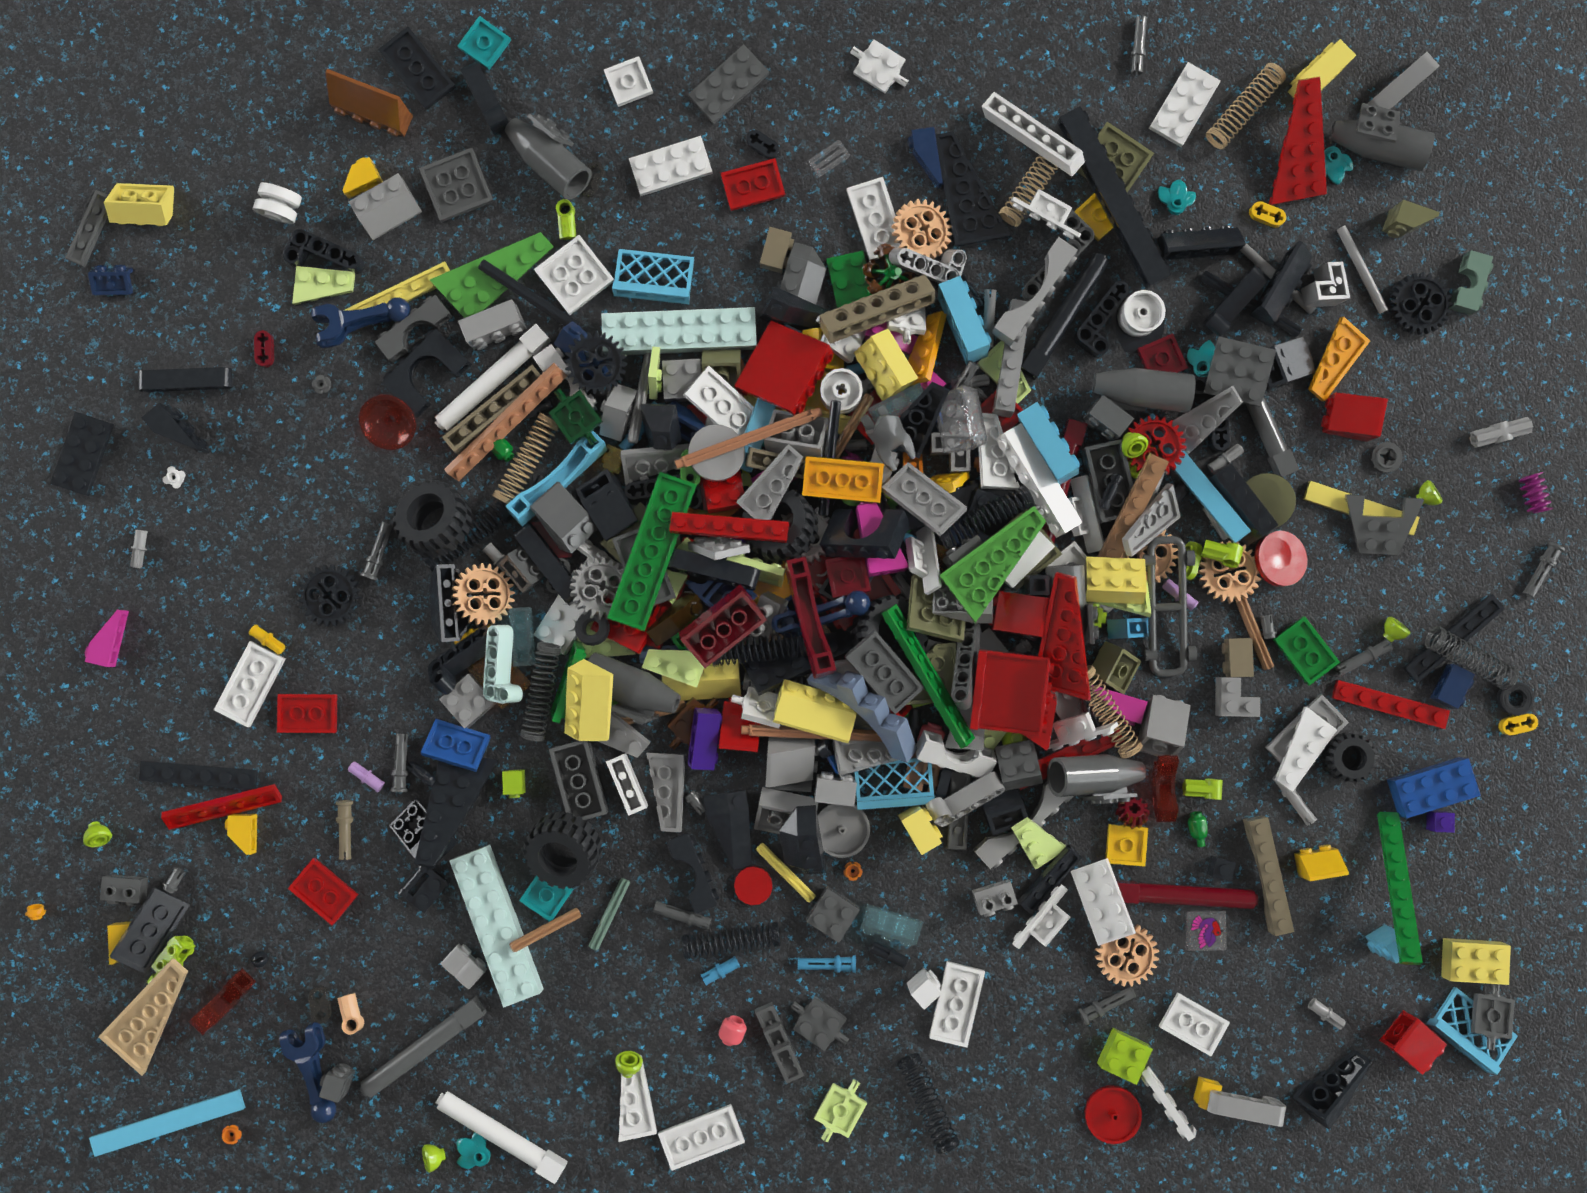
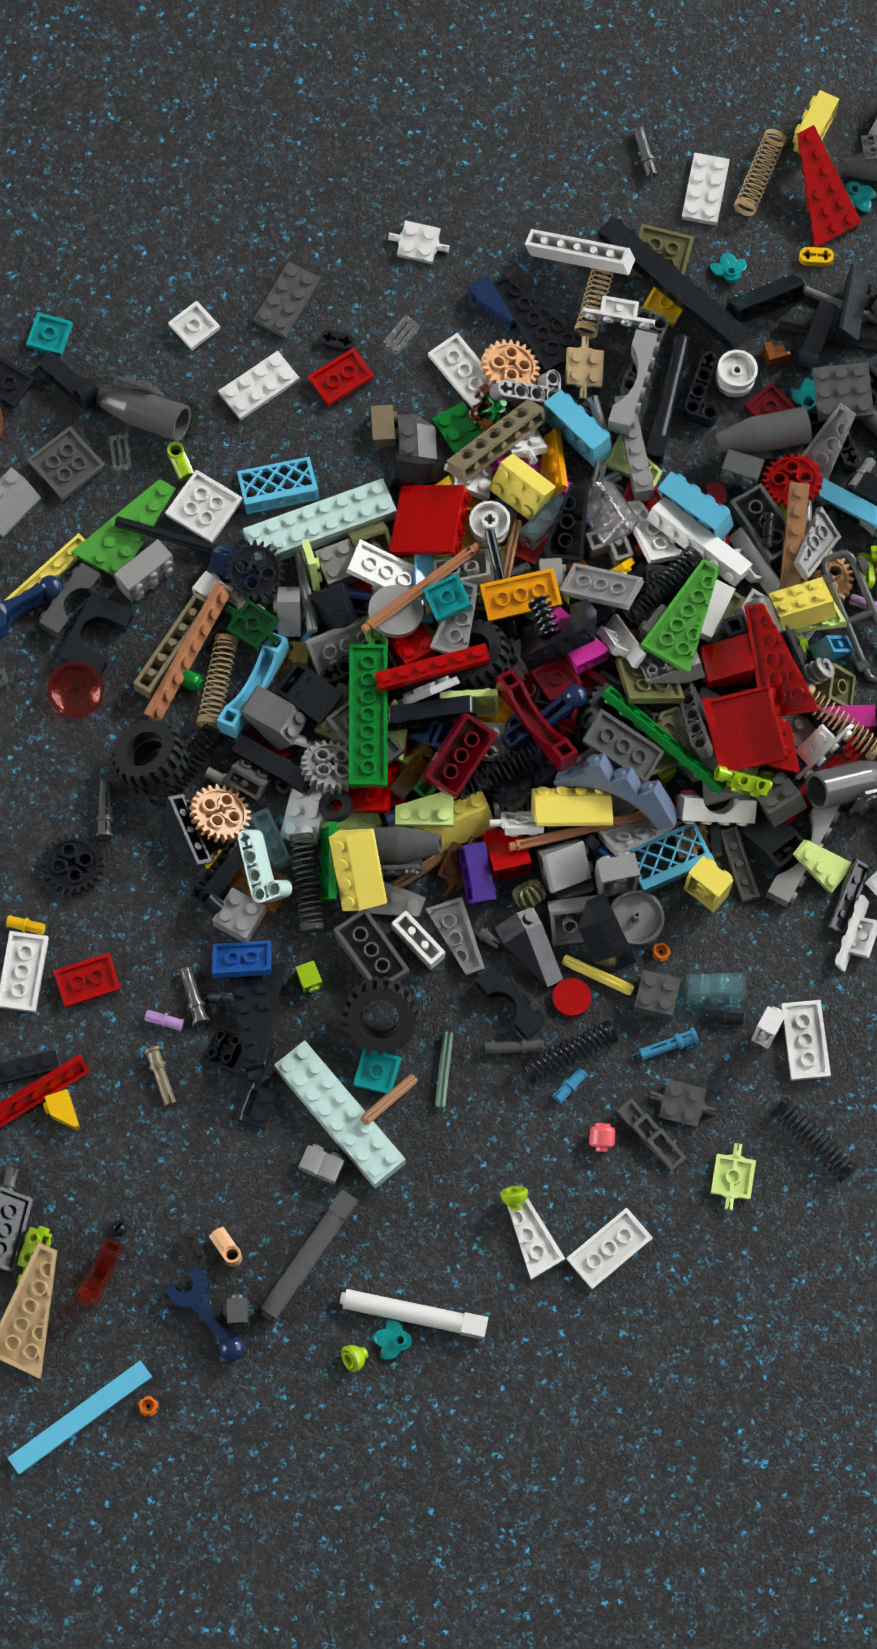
camera: 20 degrees left, 15 degrees down
(323, 891) = (160, 1141): red plate -> none
(503, 205) = (122, 467): none -> clear tile
(530, 344) = (183, 581): white brick -> none
(747, 775) = (529, 894): none -> olive gear
(769, 460) = (447, 597): none -> teal plate
(855, 513) = (542, 616): none -> black piece
(887, 435) = (547, 544): dark grey piece -> none
(965, 800) = (743, 843): light grey beam -> none
(989, 745) = (740, 781): none -> lime brick
(994, 255) = (584, 367): none -> tan plate
(994, 897) = (803, 929): light grey brick -> none
(1102, 653) = (817, 671): none -> light grey piece
(1134, 444) = (773, 483): lime brick -> none
(1188, 304) = (775, 355): none -> dark orange panel

